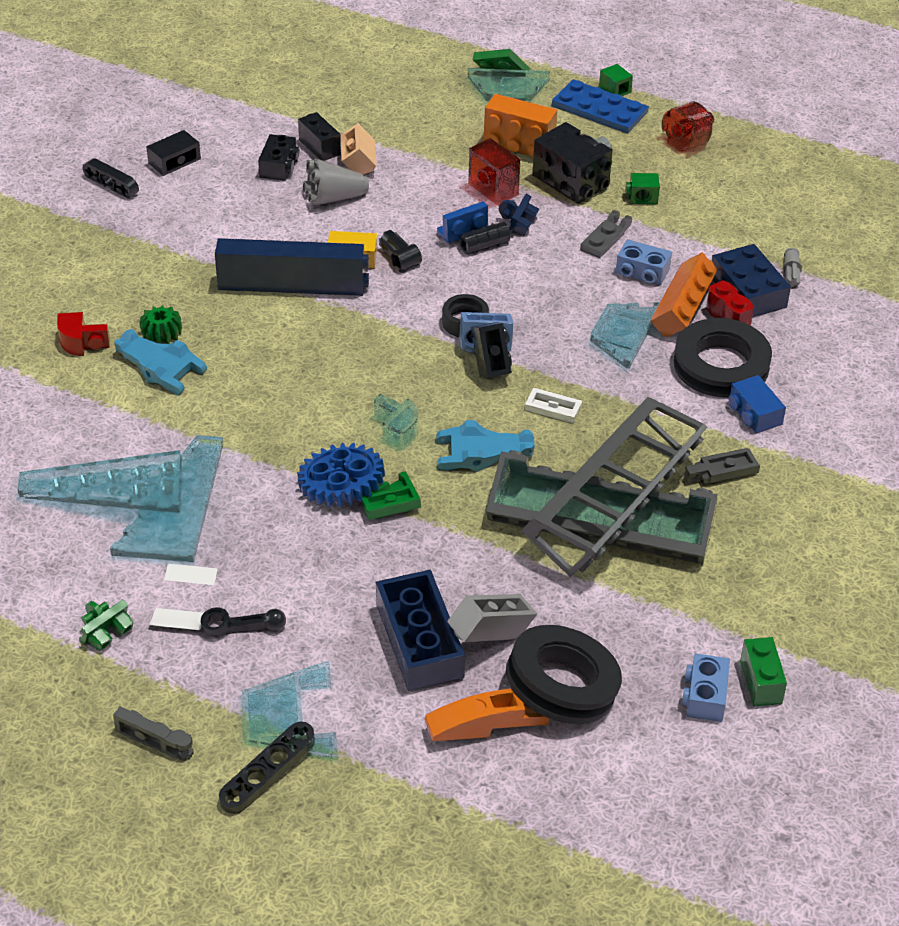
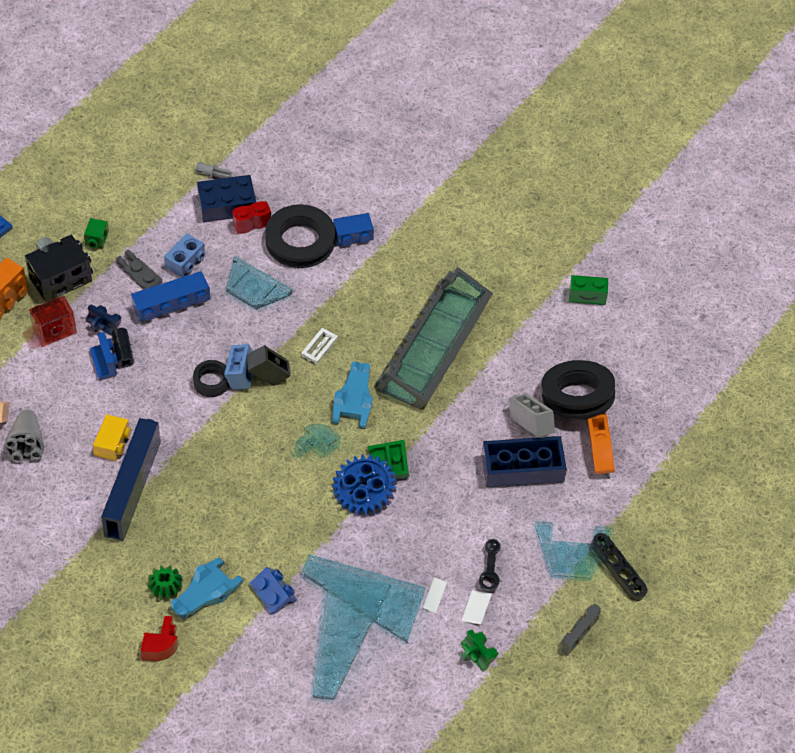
camera: 80 degrees left, 10 degrees up
(169, 418) = (272, 589): none -> blue bracket
(401, 254) = (126, 404): black piece -> none
(573, 259) = (170, 296): none -> blue brick
(599, 459) = (414, 332): dark grey window -> none
(683, 295) = (233, 239): orange brick -> none
(687, 126) = (34, 184): clear red brick -> none
(707, 687) = (594, 321): medium blue brick -> none
(722, 467) = (406, 264): dark grey hinge -> none

